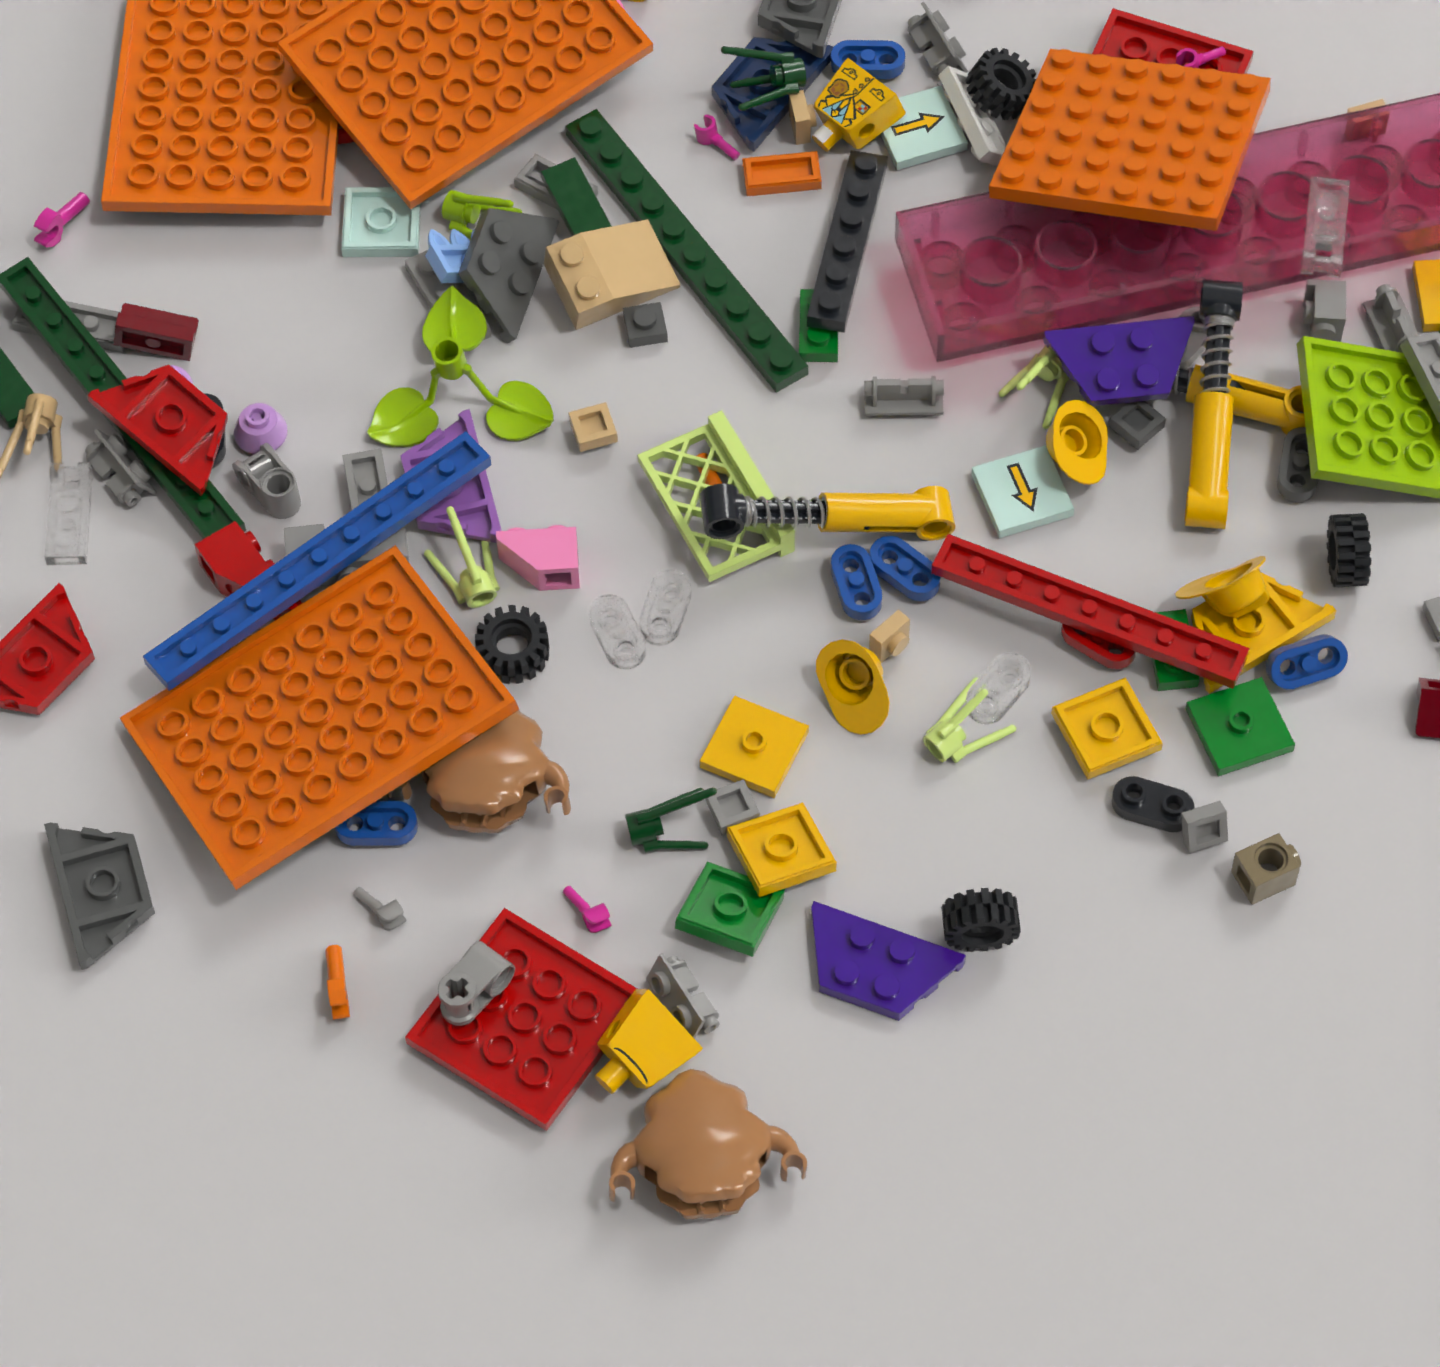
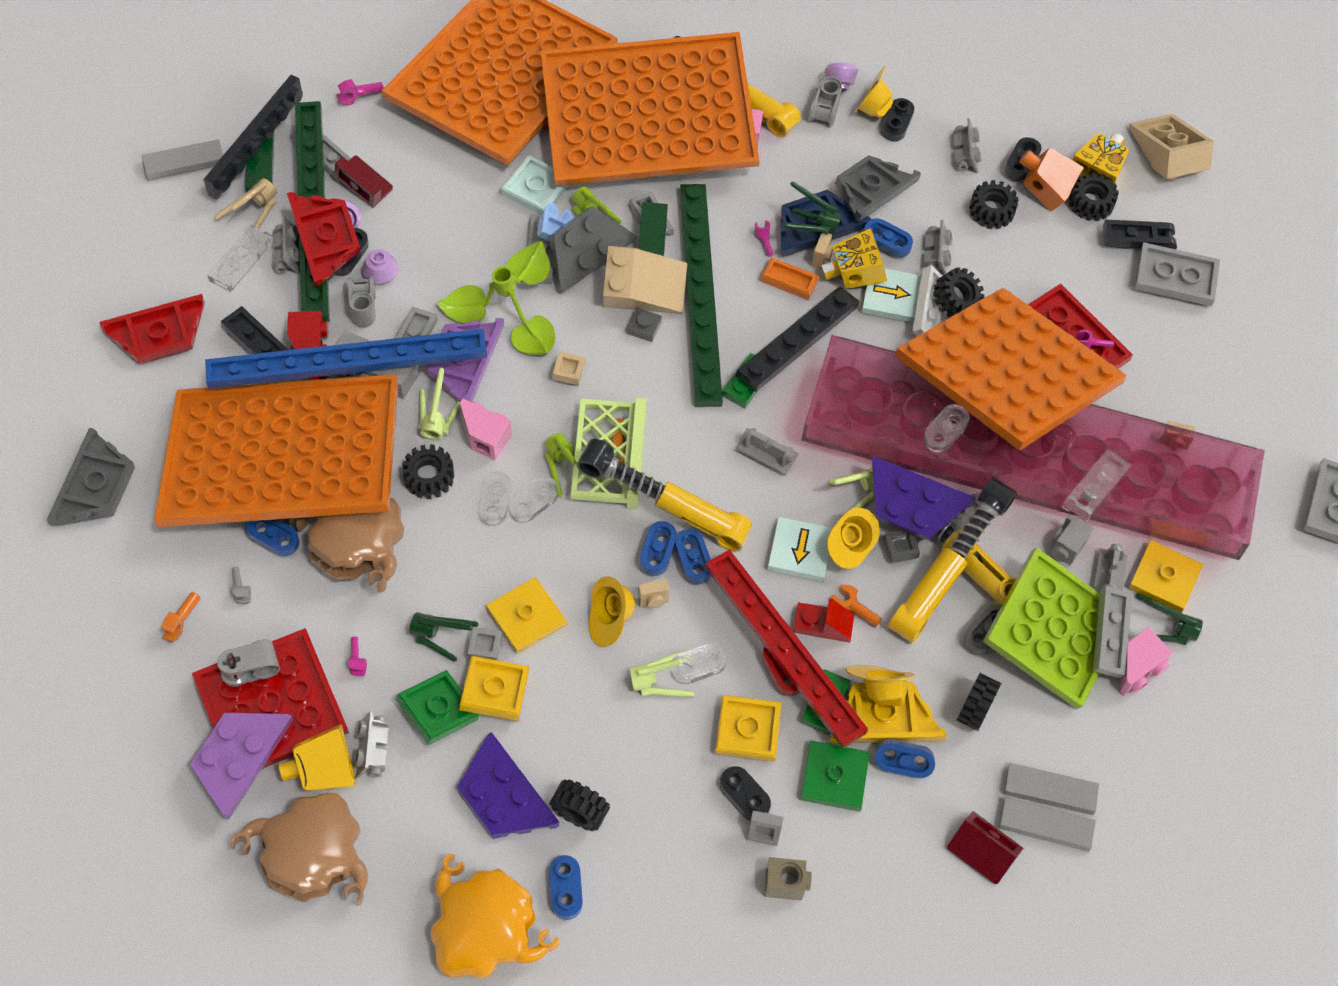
camera: 25 degrees right, 0 degrees up
(162, 599) = (251, 333): none -> black plate
(536, 1095) = (237, 754): none -> medium lavender wing
(655, 530) = (561, 450): none -> lime plant
(965, 1110) = (483, 923): none -> light orange piece
(1021, 1021) = (565, 886): none -> blue plate
(1109, 560) = (824, 622): none -> red slope
(1110, 254) = (944, 429): none -> clear plate
(1127, 522) = (853, 605): none -> orange bar

